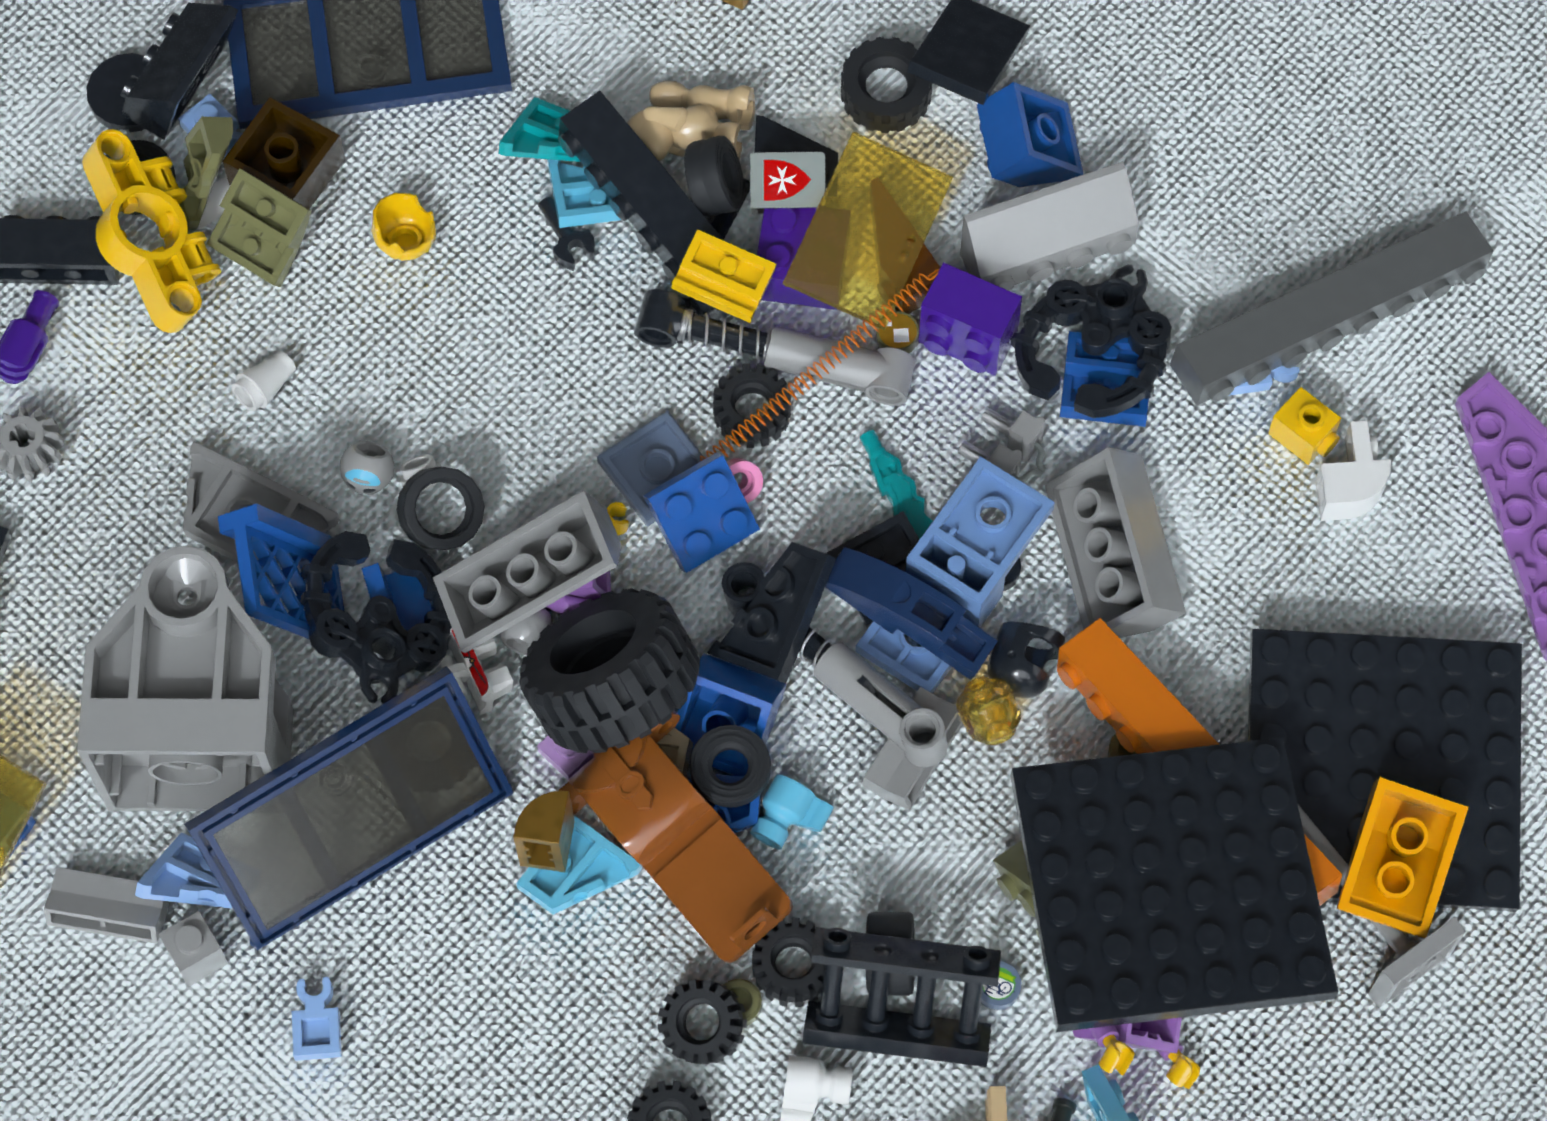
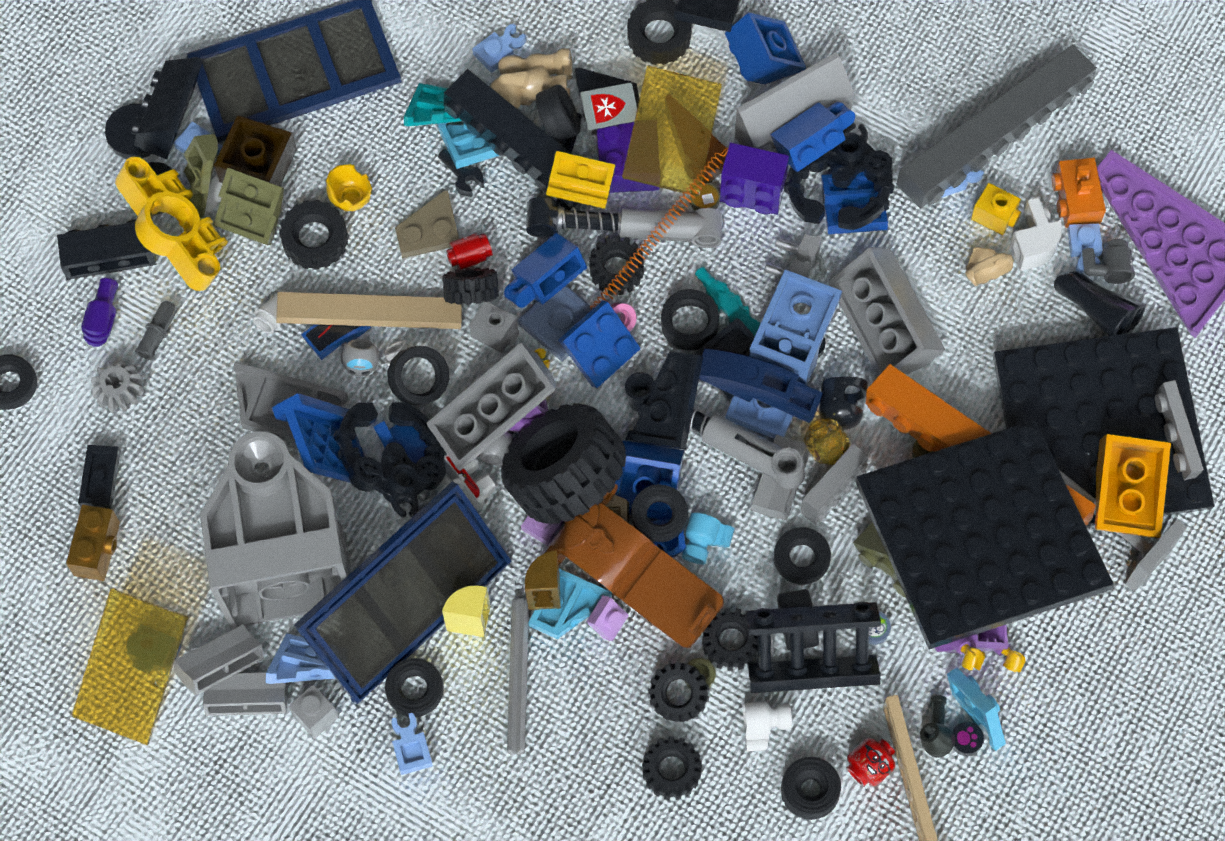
camera: 10 degrees left, 0 degrees up
(79, 851) = (218, 660): none -> light grey piece
(97, 377) = (156, 330): none -> dark grey axle
(335, 252) = (313, 212): none -> black tyre
(336, 915) = (409, 668): none -> black tyre
(342, 422) = (327, 338): none -> slope
(393, 404) = (367, 310): none -> tan tile
(434, 851) = (467, 611): none -> light yellow brick
(485, 958) = (518, 677): none -> light grey axle
(503, 304) = (428, 228): none -> dark tan wing
(540, 396) = (470, 286): none -> black tyre
(550, 346) = (469, 251): none -> red brick
(561, 460) = (494, 327): none -> light grey brick
(627, 899) = (607, 618): none -> lavender plate
(648, 396) = (545, 272): none -> blue brick
(654, 66) = (496, 47): none -> light blue plate
(836, 470) = (689, 298): none -> black tyre
(919, 837) = (794, 573): none -> black tyre
(985, 773) = (834, 485): none -> light grey piece
(1066, 271) = (812, 133): none -> blue brick
(1273, 503) = (987, 265): none -> tan piece
(1423, 500) = (1082, 237): none -> light blue plate
(1428, 424) = (1078, 192): none -> orange brick
(1430, 599) = (1109, 310): none -> black piece
(1459, 536) = (1116, 265): none -> dark grey piece
(1487, 791) = (1178, 430): none -> light grey plate

